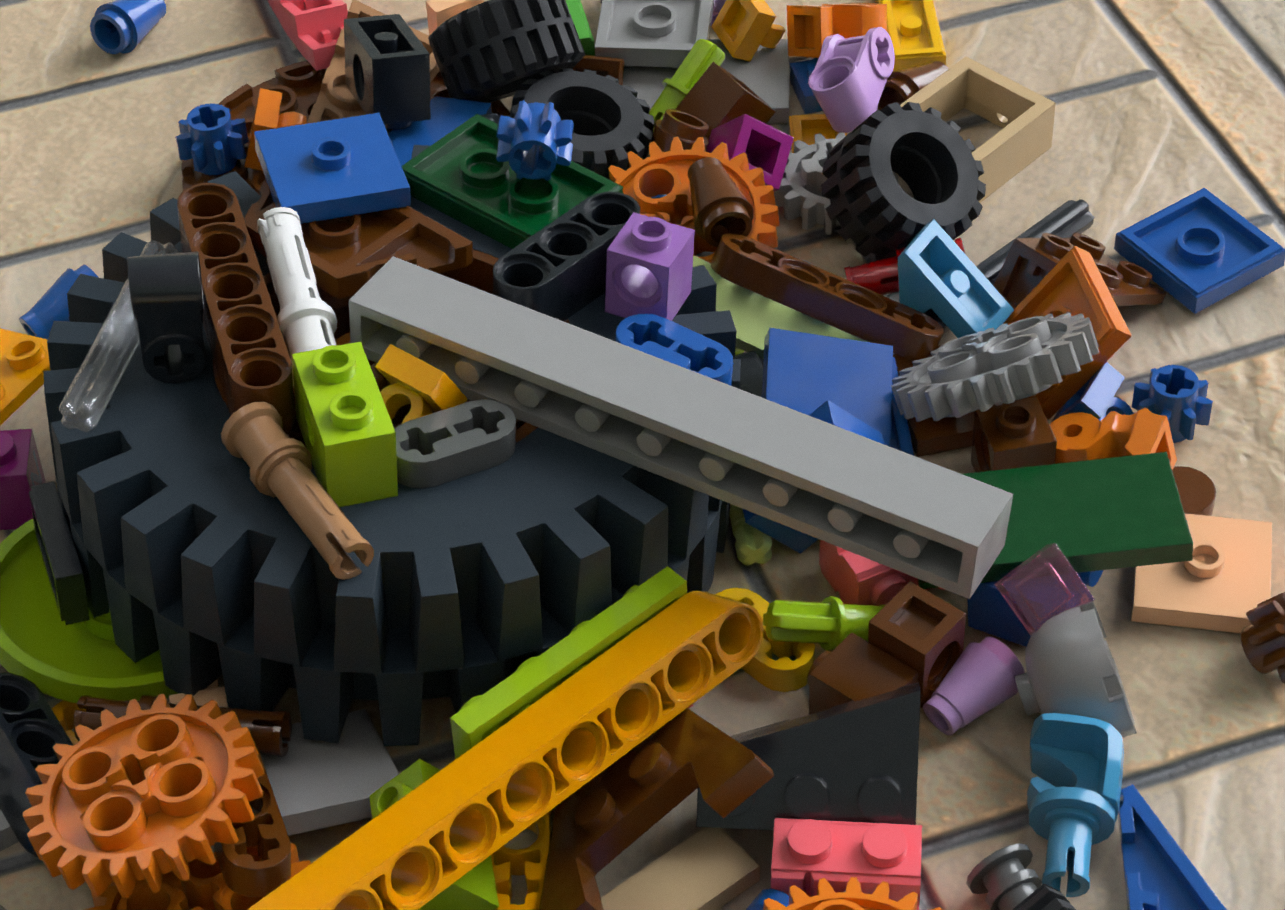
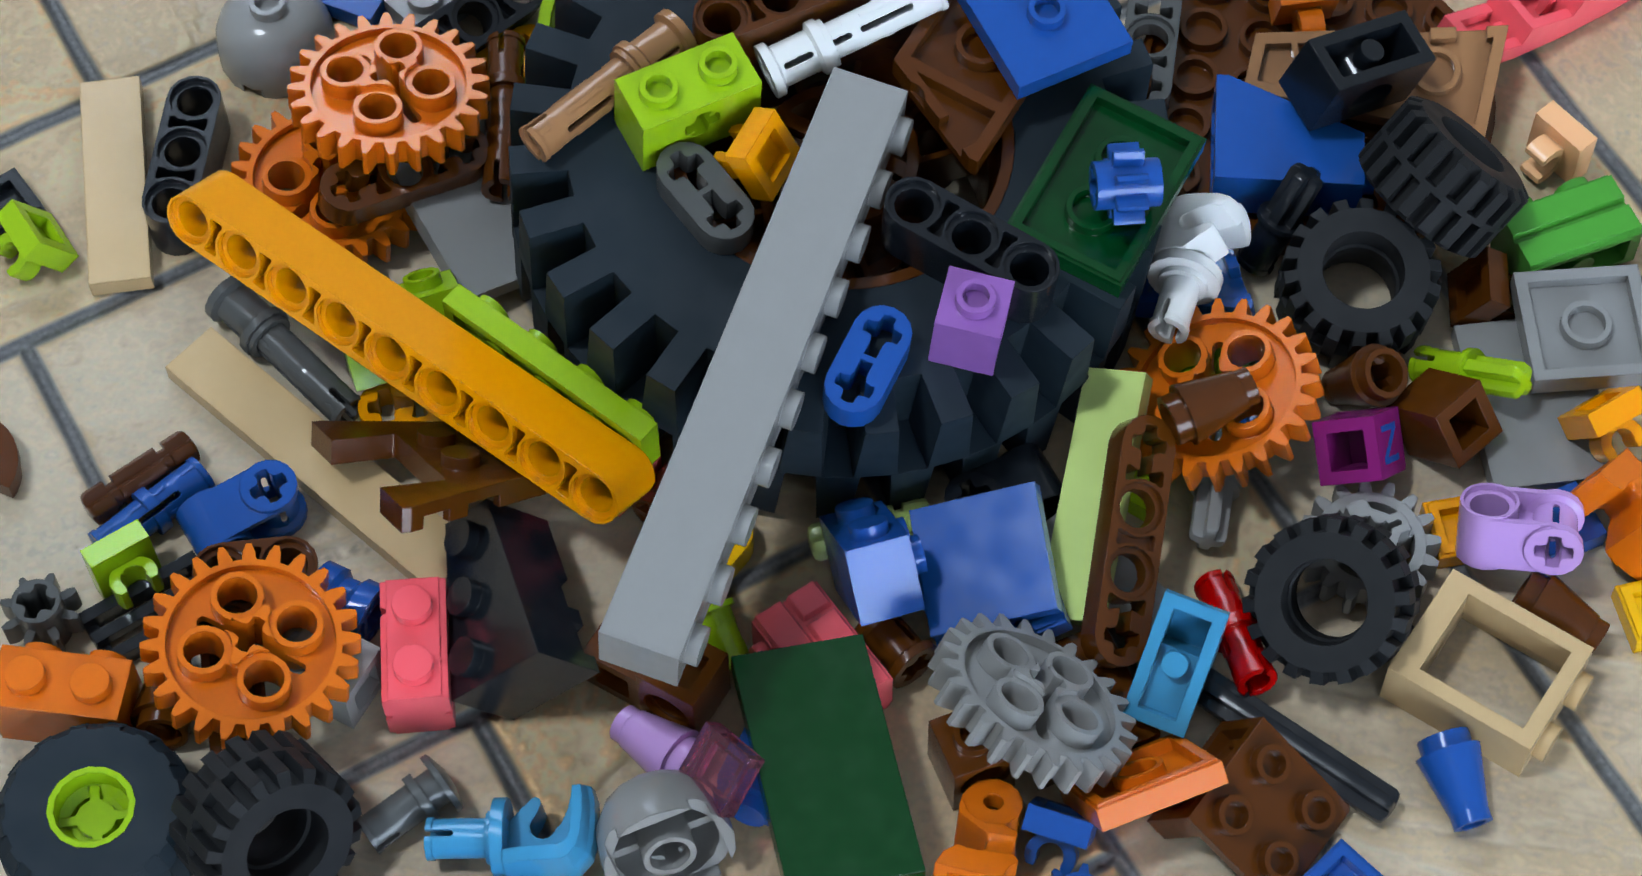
camera: 80 degrees right, 15 degrees up
(1056, 166) = (1456, 775): none -> blue cone

